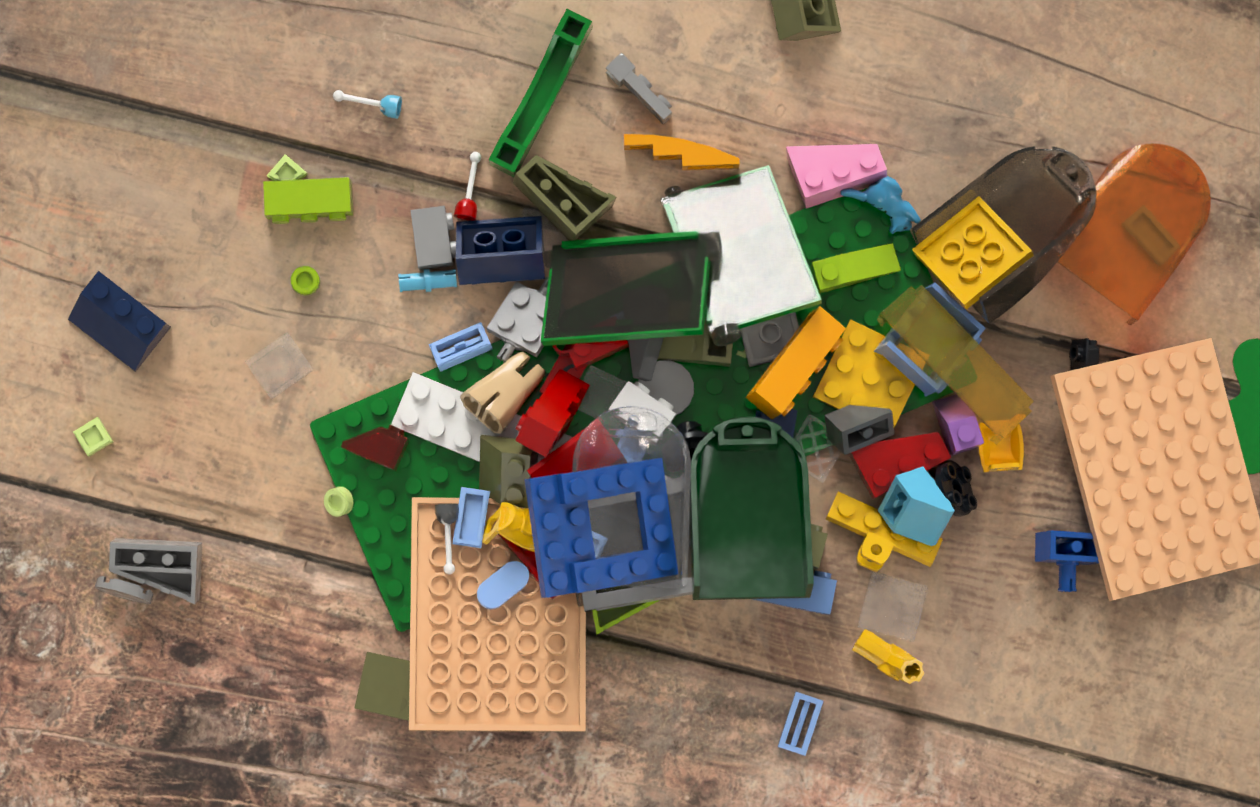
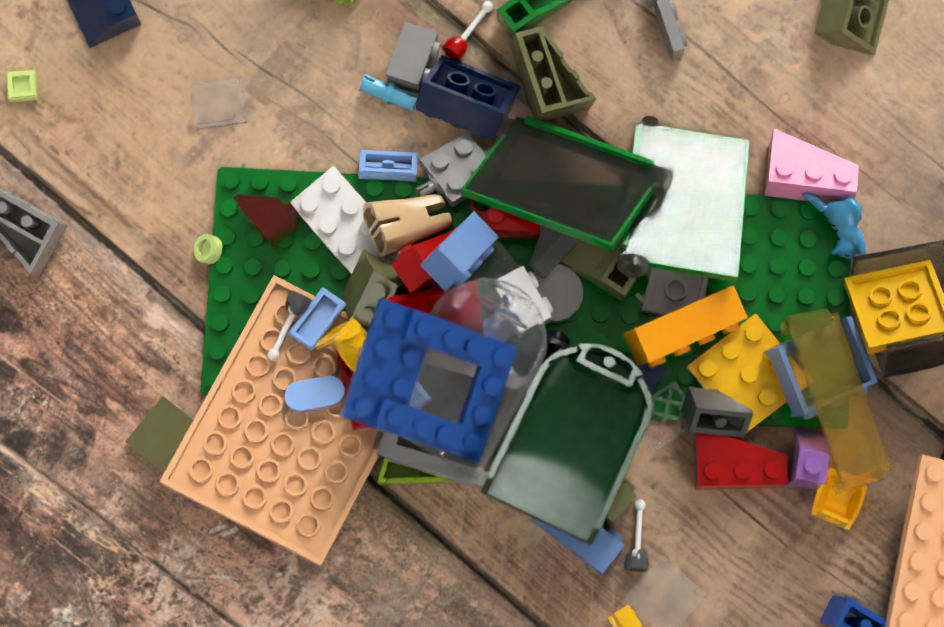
camera: 30 degrees right, 5 degrees down
(305, 280) = (280, 41): lime tile -> none
(570, 399) = (460, 252): none -> medium blue brick
(693, 154) = (684, 96): light orange slope -> none
(852, 585) = (637, 559): none -> hinge
(854, 267) = (782, 268): lime slope -> none
(877, 534) = (688, 524): yellow plate -> none
(916, 507) = (732, 513): medium azure slope -> none
(956, 487) = (773, 515): black plate -> none

